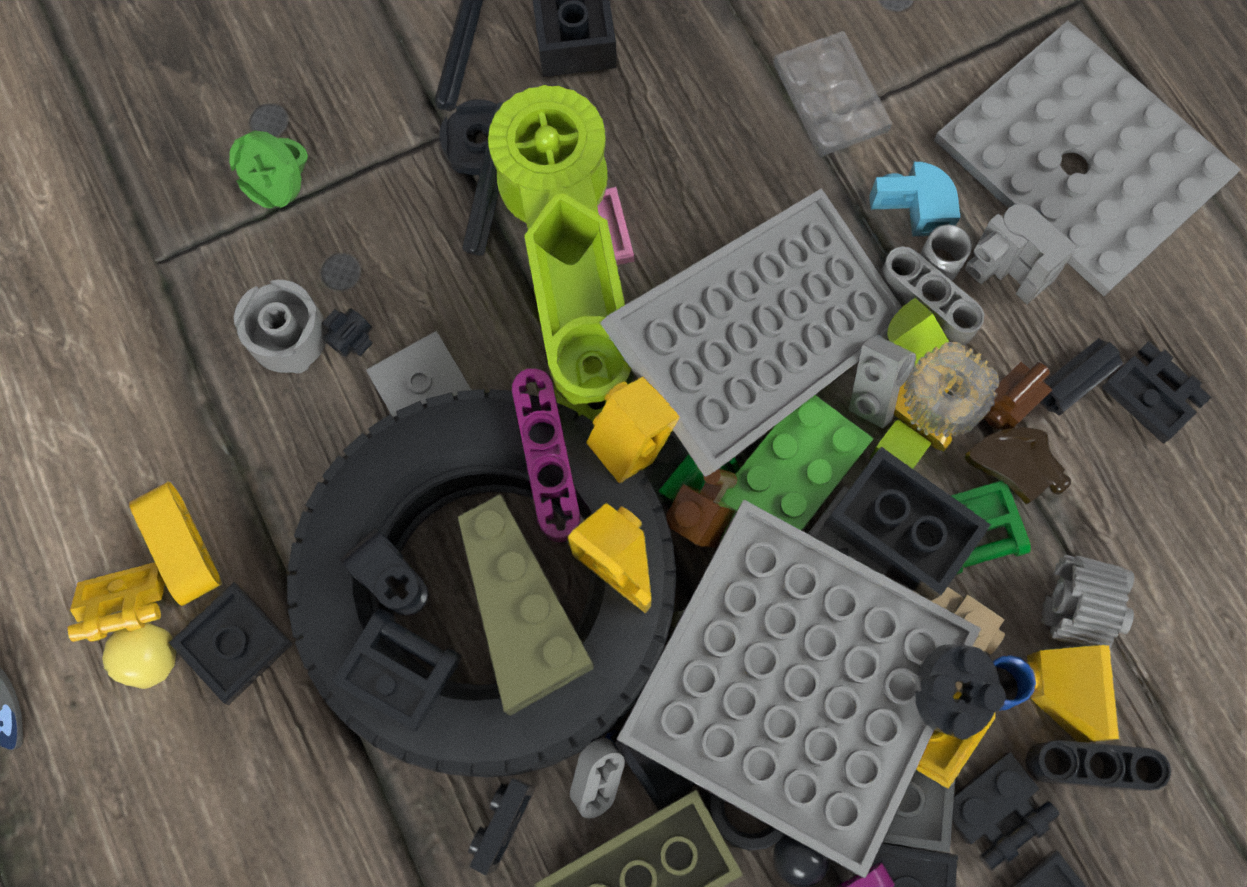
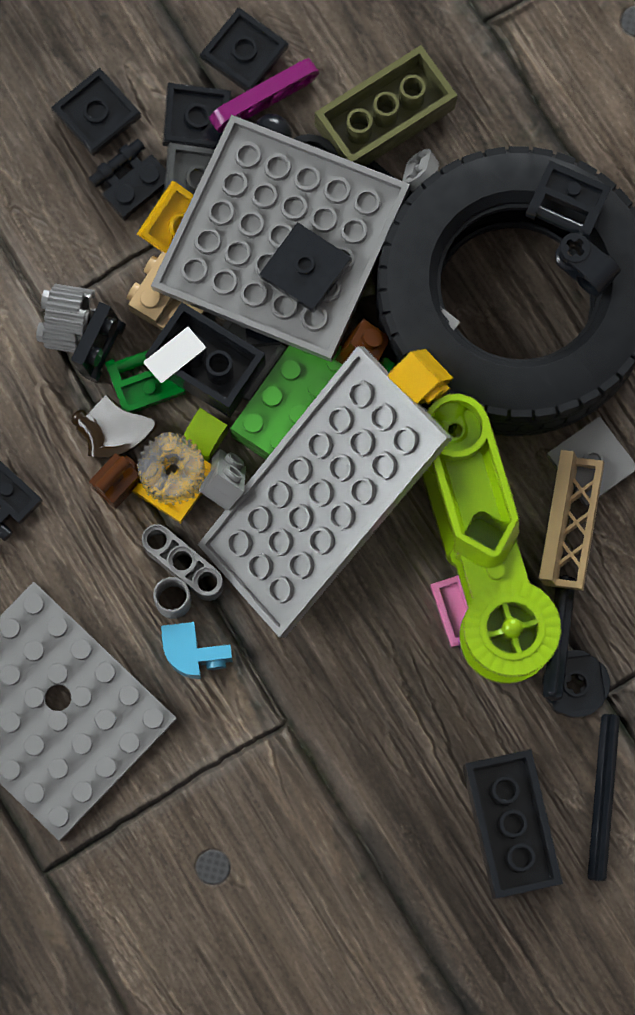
camera: 170 degrees right, 5 degrees up
(472, 302) = (559, 518): none -> tan fence
(492, 841) = (489, 125): black plate -> none
(523, 621) = (486, 244): olive wedge -> none
(545, 454) = (486, 360): magenta beam -> none
(615, 551) = (424, 285): yellow slope -> none
(771, 626) = (305, 267): none -> black plate
(832, 93) = (269, 750): clear plate -> none
(916, 329) = (197, 522): lime brick -> none
(951, 521) = (174, 354): none -> white sticker
(979, 695) = (155, 231): black plate -> none
(1023, 675) = (125, 246): blue piece -> none
(1024, 247) = (112, 606): light grey hips -> none
(1046, 568) = (97, 342): none -> black plate
(1077, 690) = (80, 257): yellow slope -> none
(1081, 375) = (62, 504): black axle -> none
(1117, 760) = (49, 201): black beam -> none

